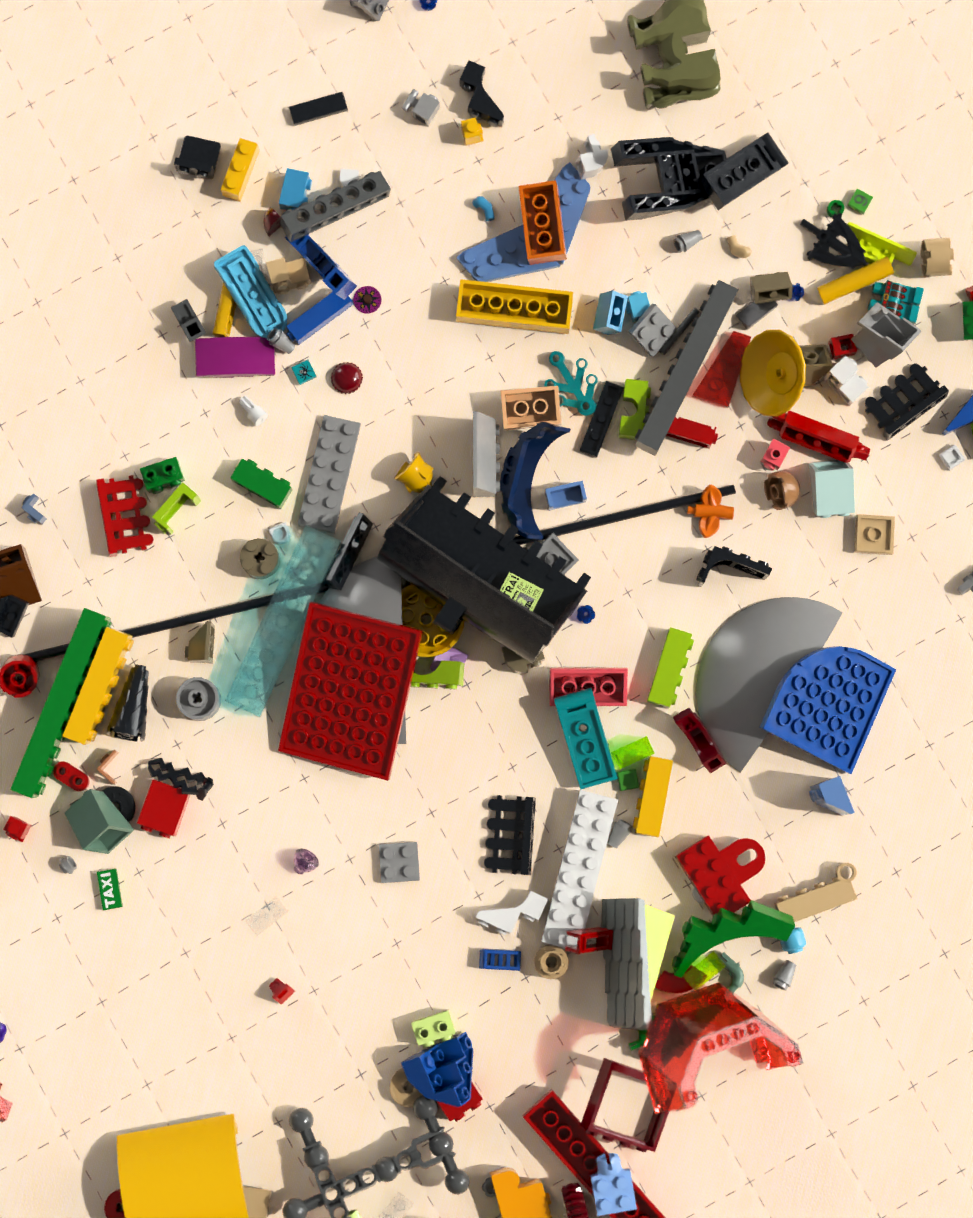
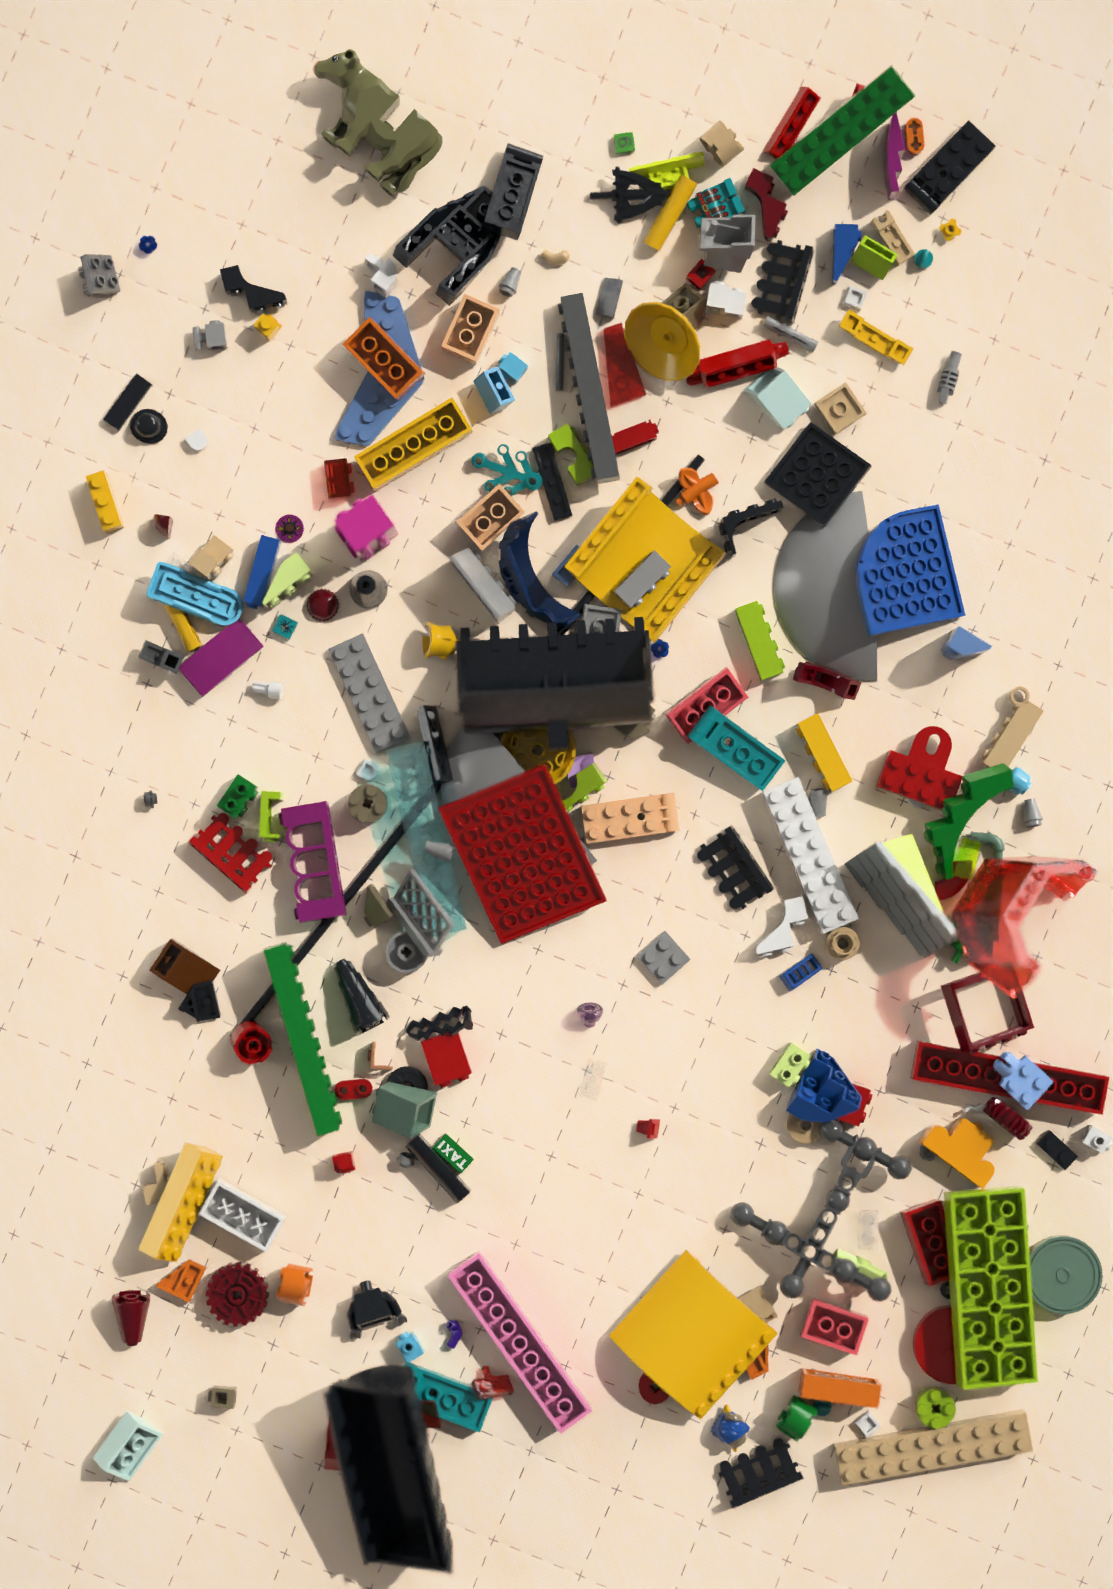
camera: 35 degrees left, 5 degrees up
(33, 514) = (160, 907): sand blue bracket -> none
(41, 1085) = (519, 1342): none -> bright pink brick
(88, 891) = (438, 1168): none -> black brick
(93, 425) = (150, 799): none -> dark grey plate
(98, 685) = (320, 1003): yellow brick -> none
(198, 157) = (62, 517): black bracket -> none
(202, 529) = (306, 815): none -> magenta fence
(221, 677) = (413, 922): none -> light grey fence
(261, 483) = (321, 742): green brick -> none
(279, 340) = (247, 616): light grey cone -> none
(286, 637) = (439, 850): none -> light grey cone
(294, 189) = (162, 485): dark azure brick -> none
(295, 229) = (220, 428): dark grey brick -> none
(320, 139) = (148, 426): none -> black hat
(325, 265) = (233, 527): blue arch -> none
(336, 334) = (289, 575): none -> yellowish green slope
(392, 392) = (371, 596): none -> cone
(424, 339) = (365, 528): none -> dark pink brick
(435, 289) = (338, 479): none -> clear red brick
(450, 723) = (619, 818): none -> light nougat hinge
(481, 202) = (325, 378): dark azure arm -> none
(521, 591) = (597, 672): yellowish green tile -> none
(555, 1181) = (974, 1109): none -> white piece
(603, 940) = (869, 894): red window -> none
(613, 548) = (642, 579): none -> light grey brick
(626, 533) = (625, 538): none -> yellow panel
(628, 252) = (470, 329): none -> light nougat brick
(628, 780) = (793, 754): bright green tile -> none
(632, 753) = (781, 731): clear neon green brick -> none
(652, 330) = (539, 378): light grey plate -> none
(771, 287) = (607, 270): dark tan brick -> none
(779, 450) = (713, 398): coral brick -> none
(781, 489) = (740, 429): medium nougat cylinder -> none
(797, 292) = (629, 258): clear blue plate -> none
(817, 571) = (817, 474): none -> black plate
(839, 204) = (609, 158): green bush -> none
(879, 446) = (789, 333): none -> light grey pin
(938, 340) = (771, 208): none -> dark red arch
(944, 500) = (875, 338): none -> yellow slope

